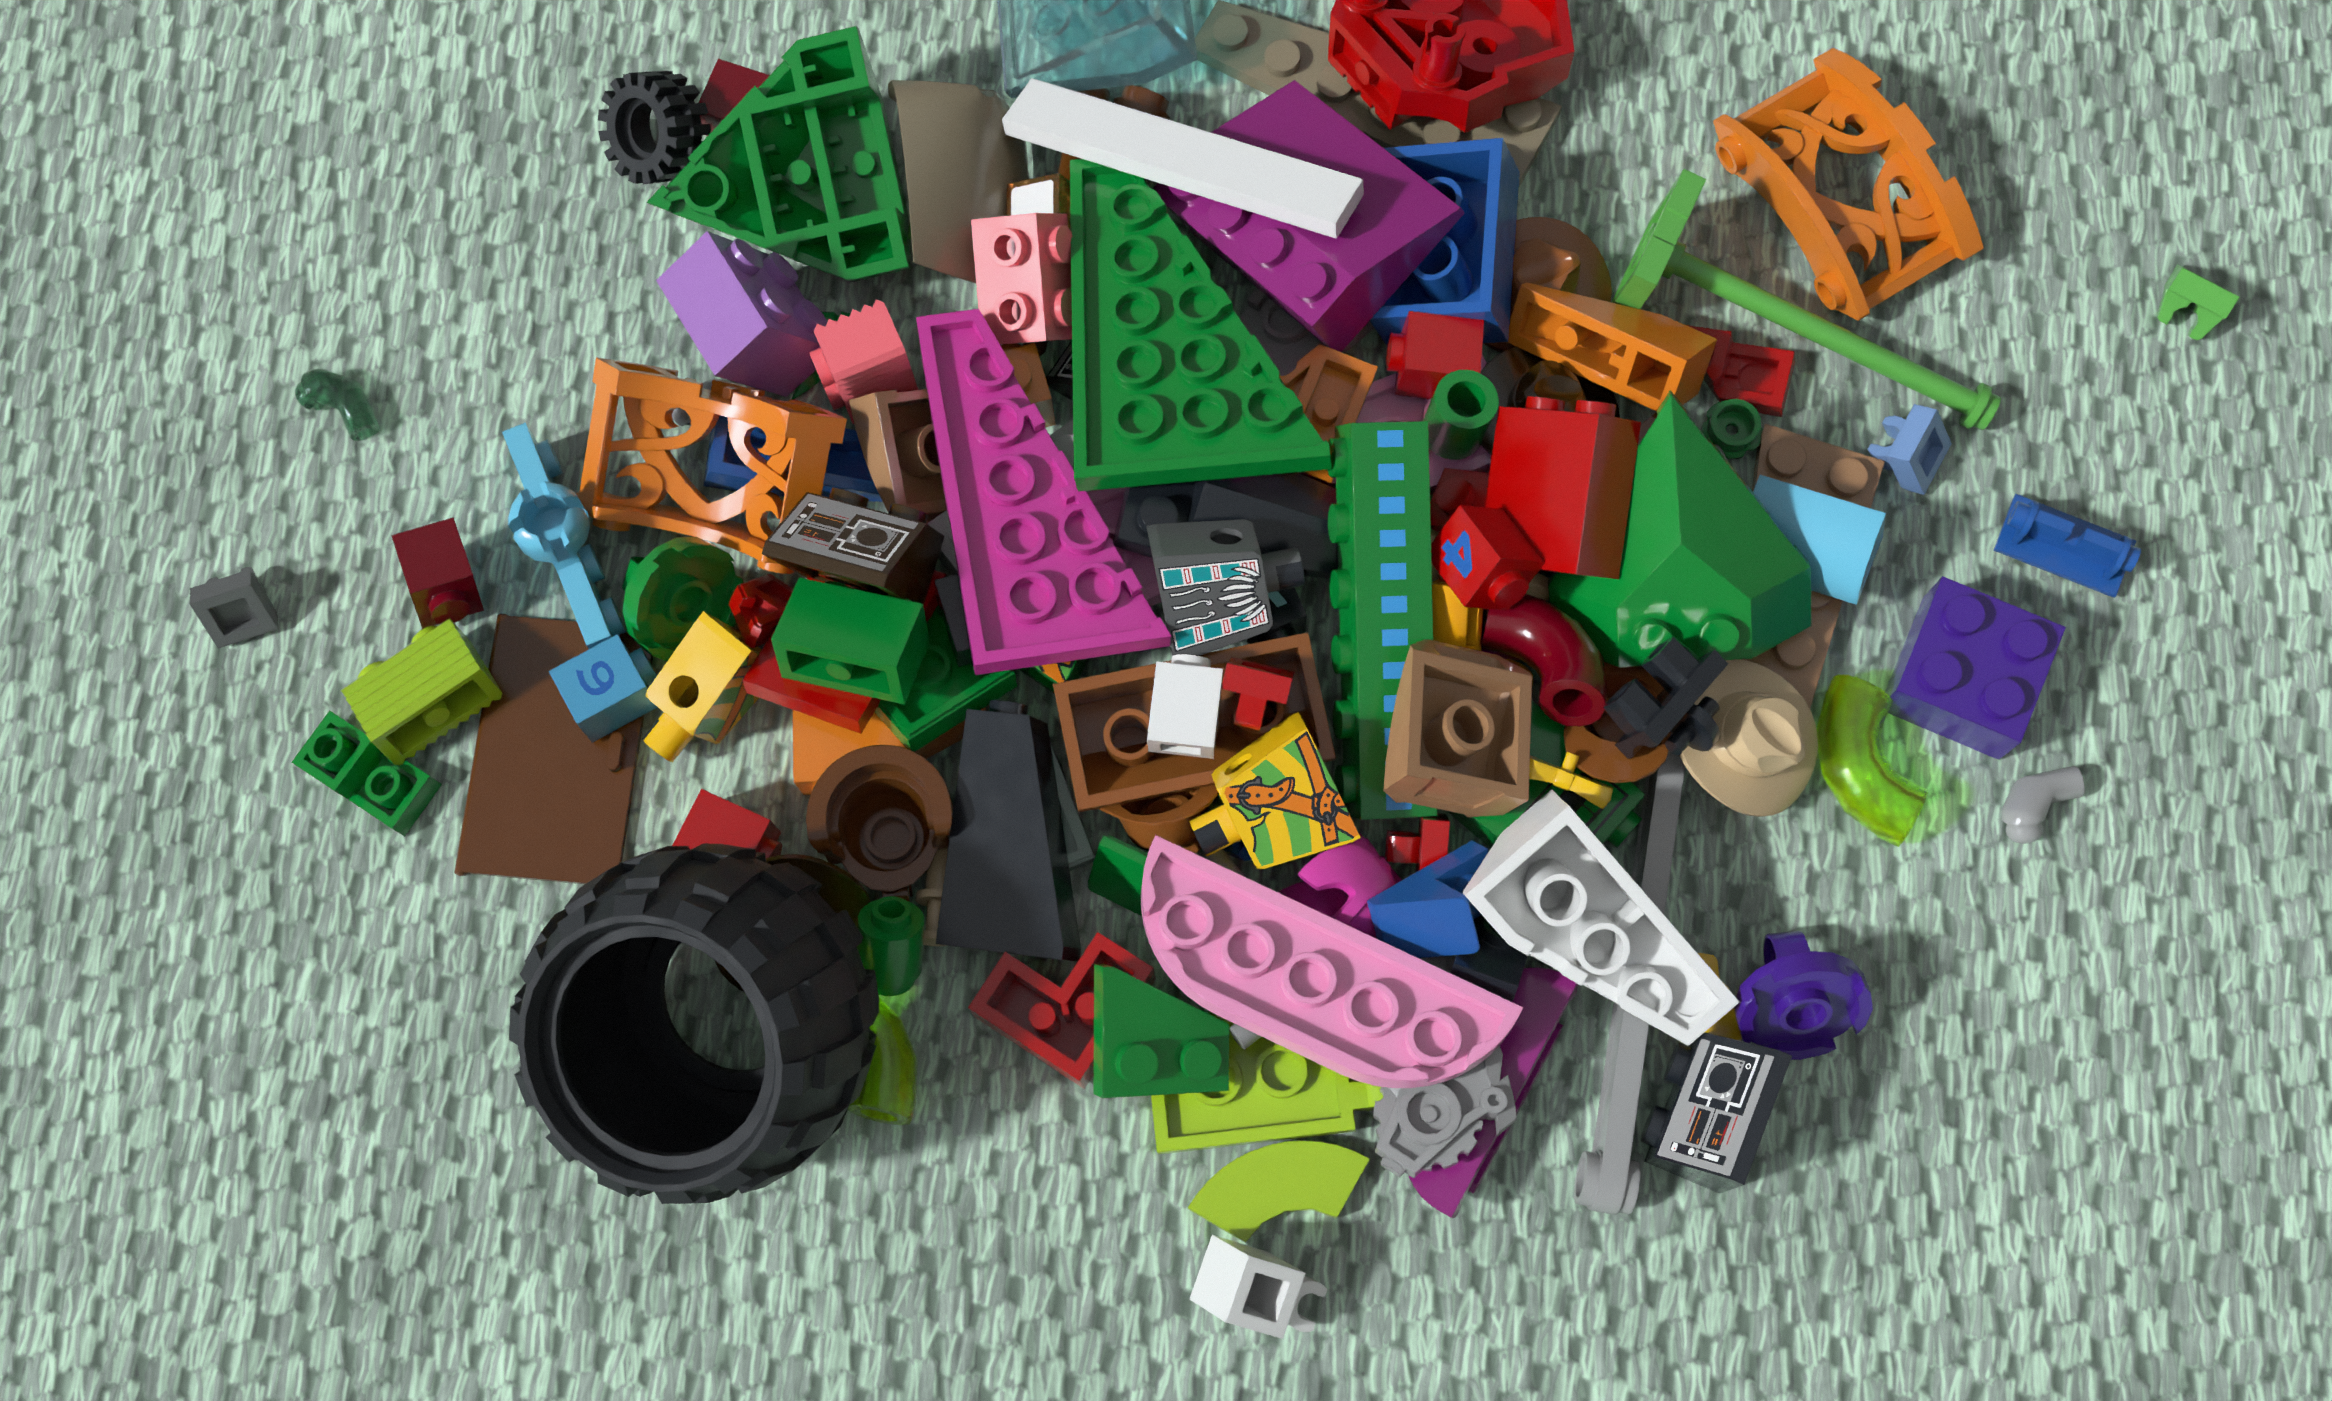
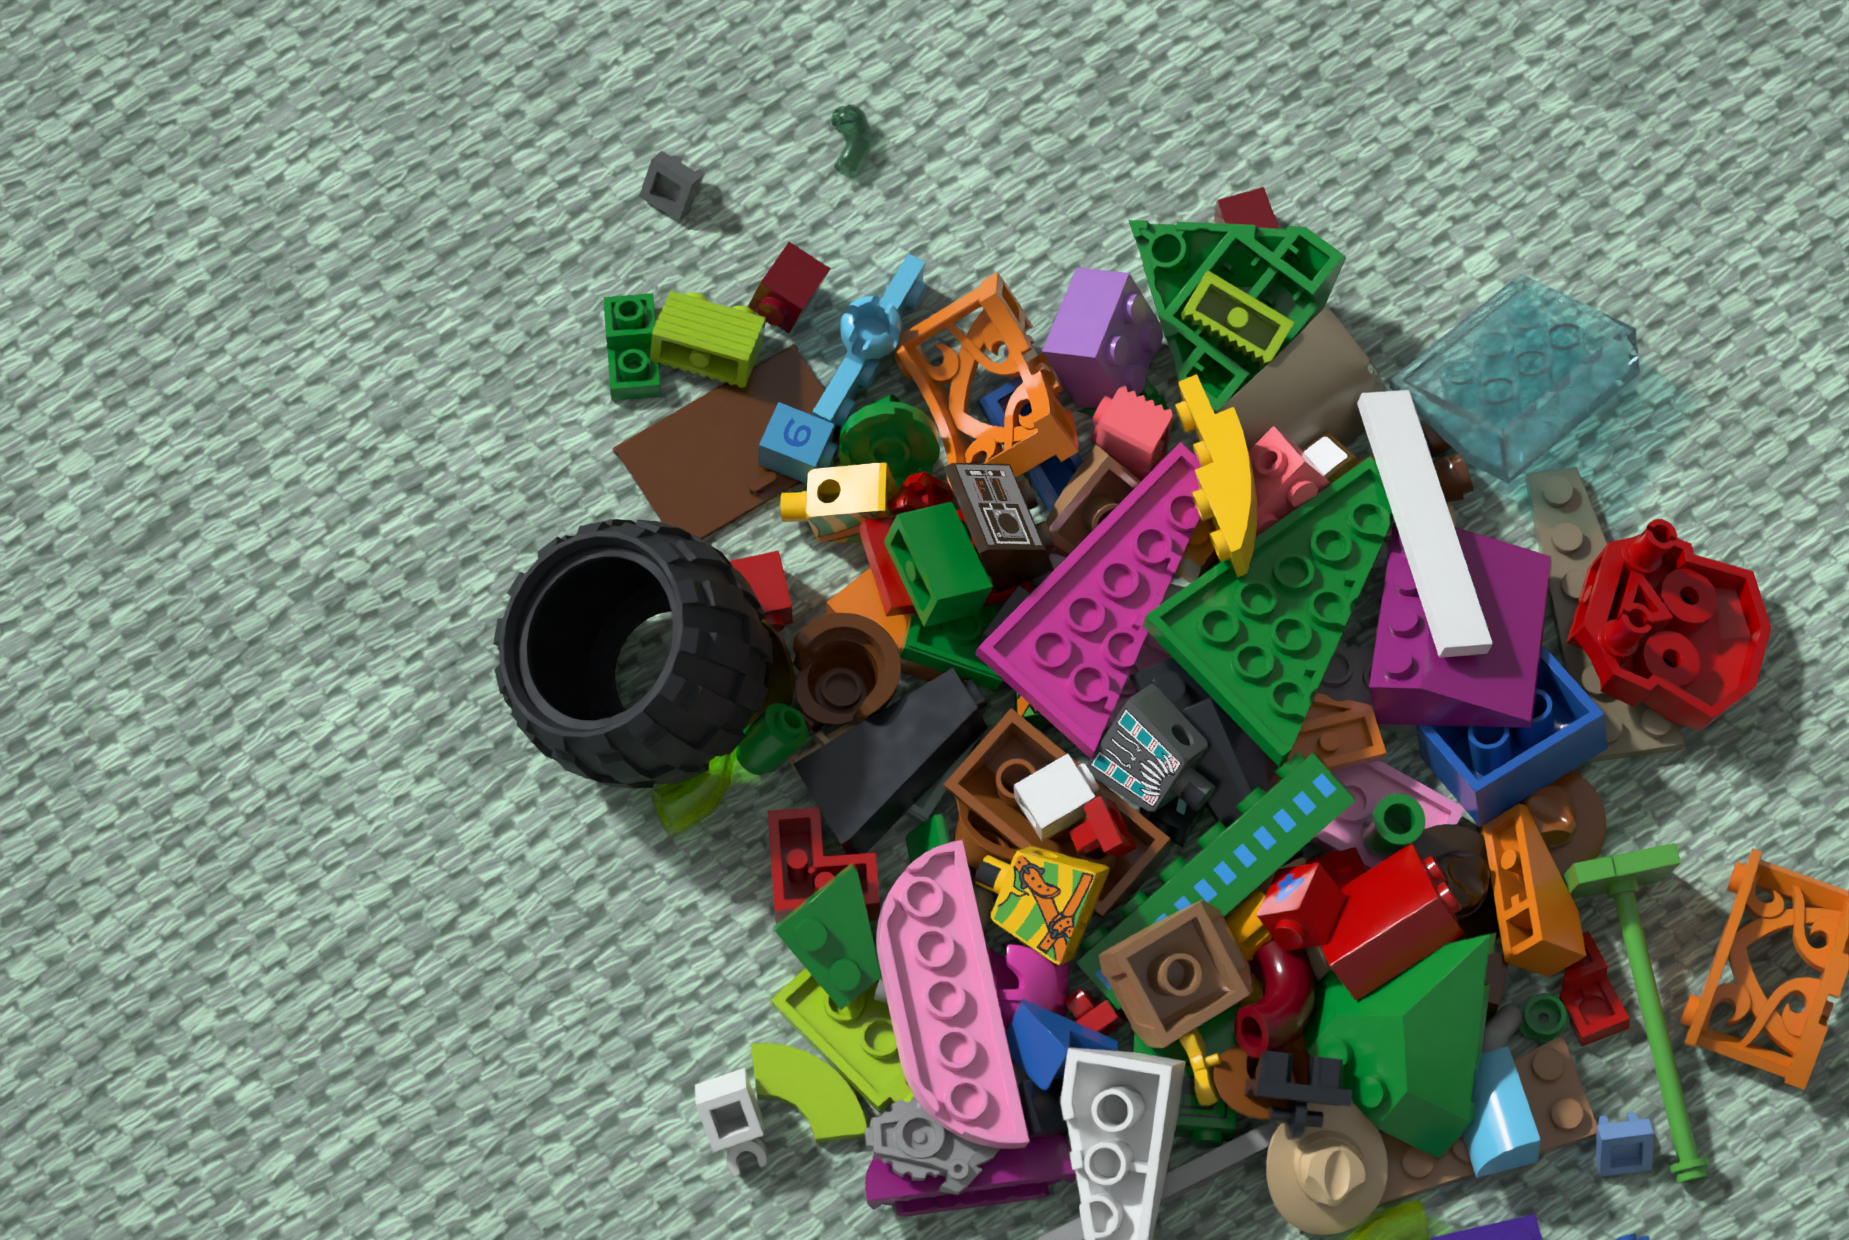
camera: 45 degrees right, 5 degrees down
(630, 130) = (1185, 182): black tyre -> none
(835, 172) = (1237, 319): none -> lime brick
(988, 293) = (1224, 475): none -> yellow slope
(1431, 349) = (1428, 780): red brick -> none

